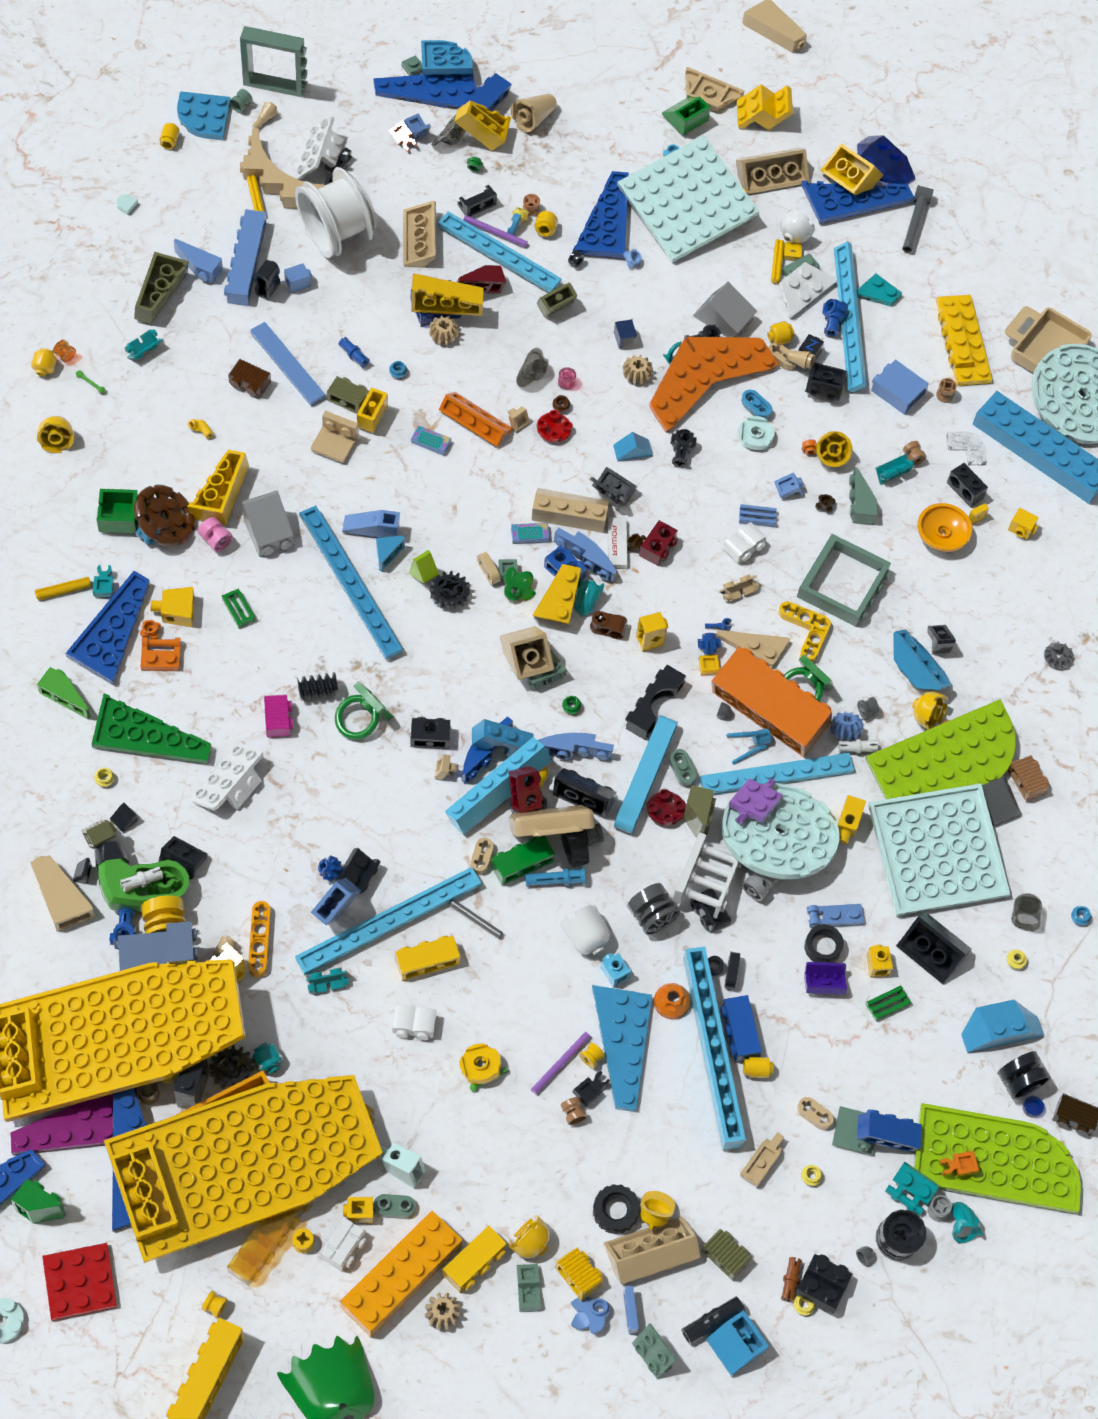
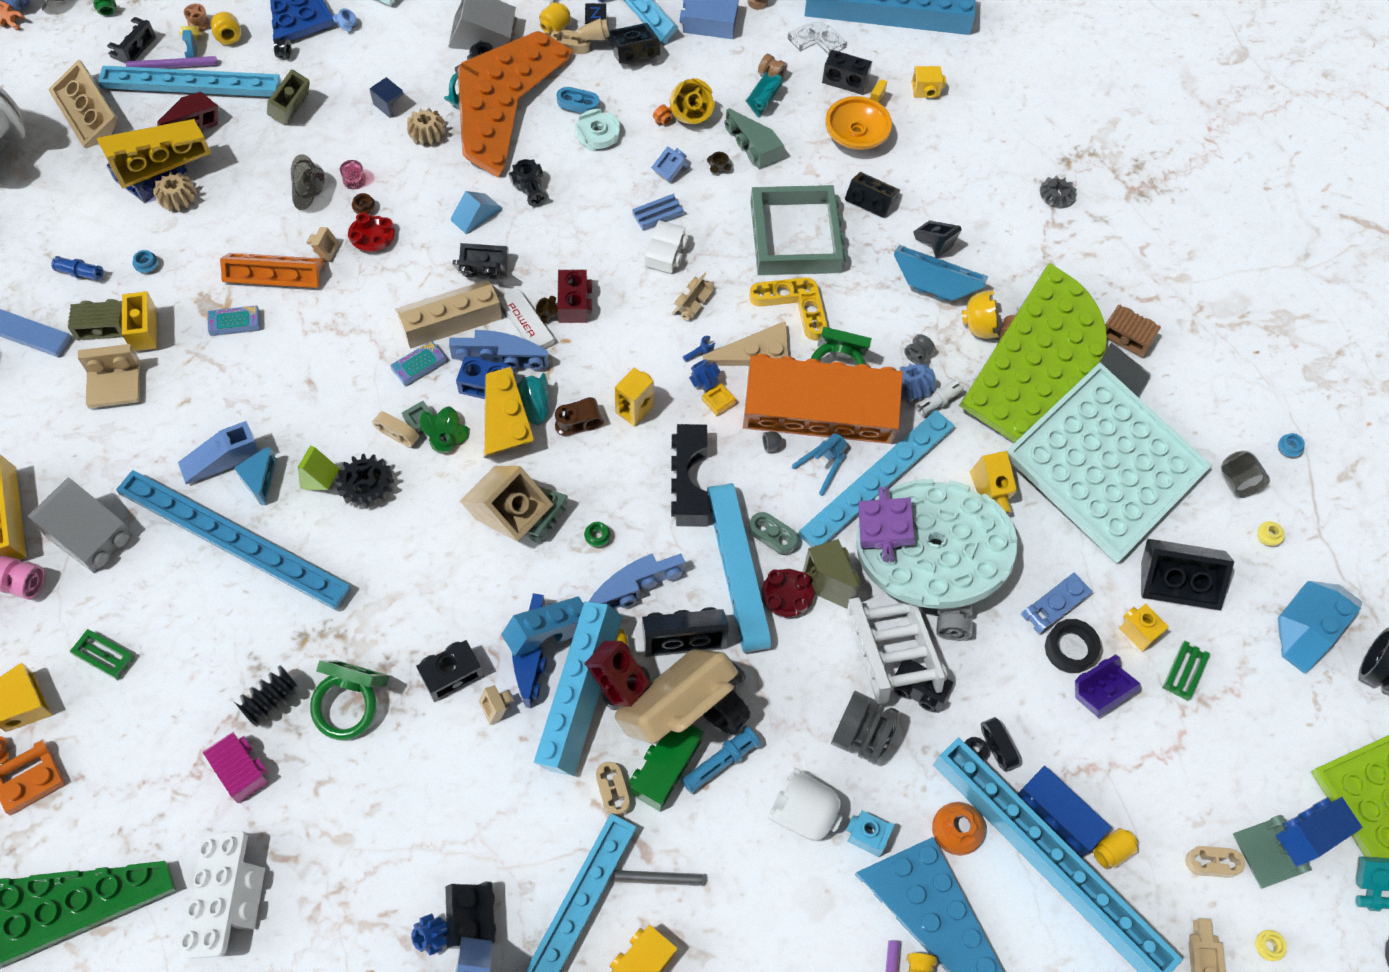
camera: 30 degrees left, 0 degrees up
(918, 583) = (871, 194): none -> black bracket

